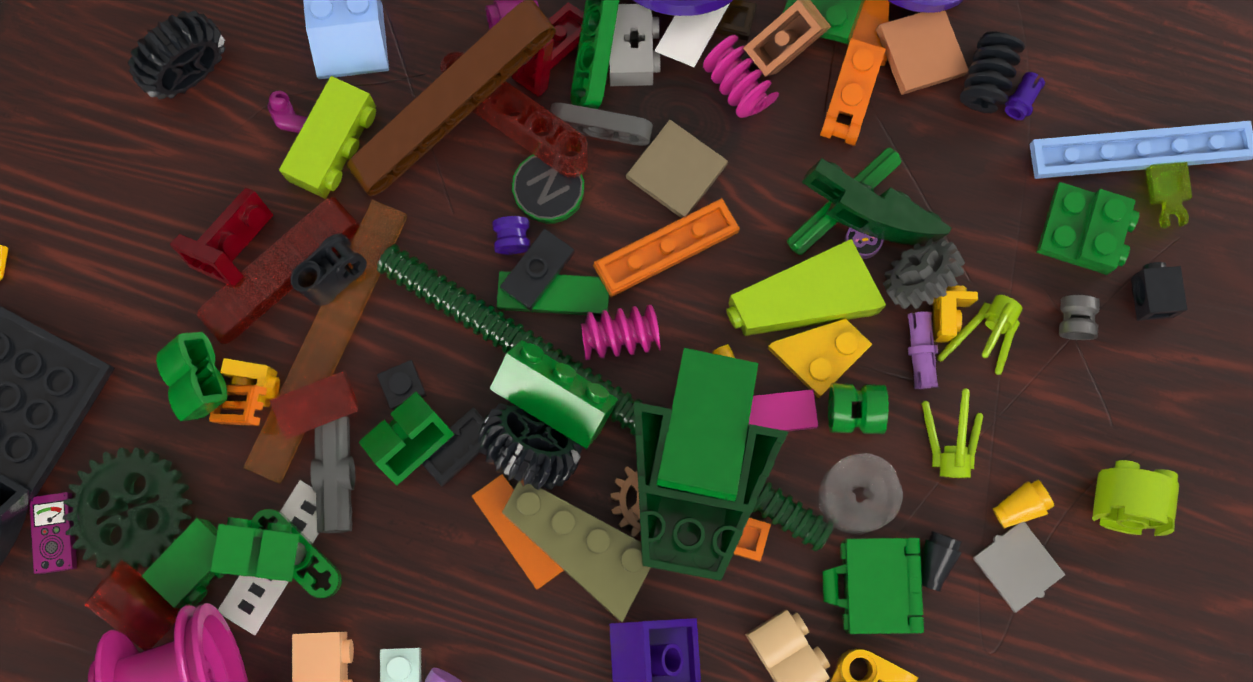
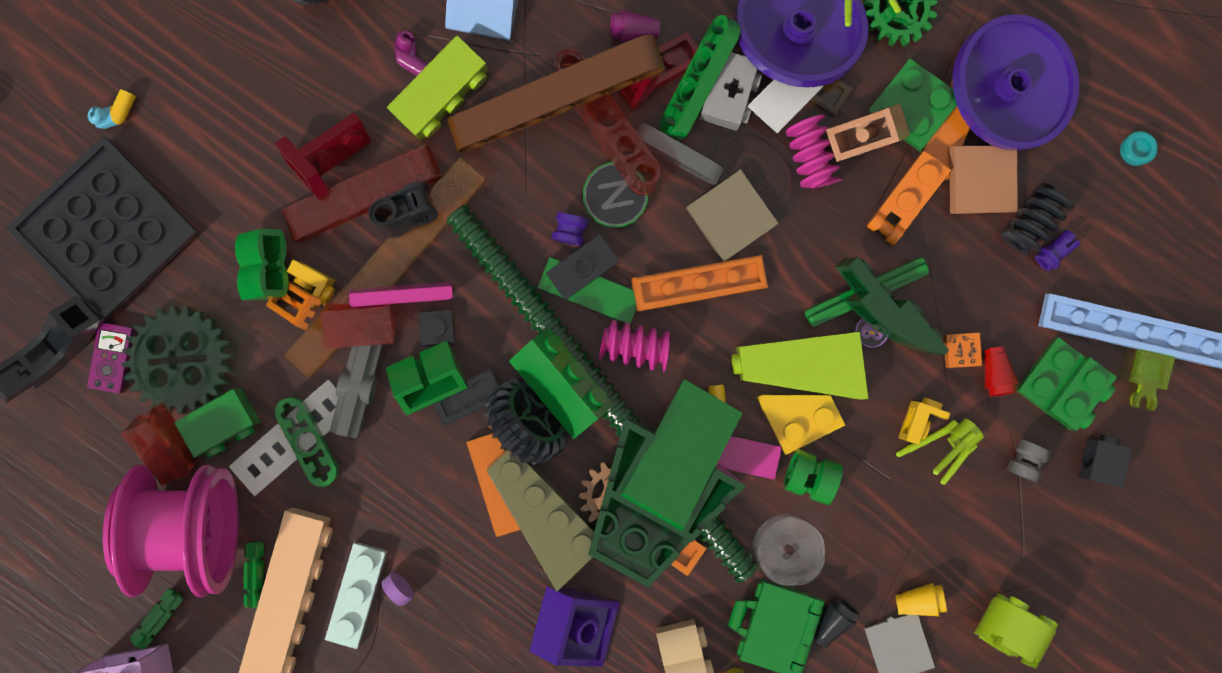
camera: 15 degrees right, 10 degrees up
(255, 551) = (273, 434): green piece -> none
(350, 358) = (400, 294): none -> dark pink tile
(923, 350) = (886, 444): medium lavender pin -> none
(924, 273) = (910, 382): dark grey gear -> none
(956, 460) = (879, 545): lime plant -> none
(967, 227) = (963, 350): none -> orange tile
(1013, 238) = (999, 373): none -> red cone

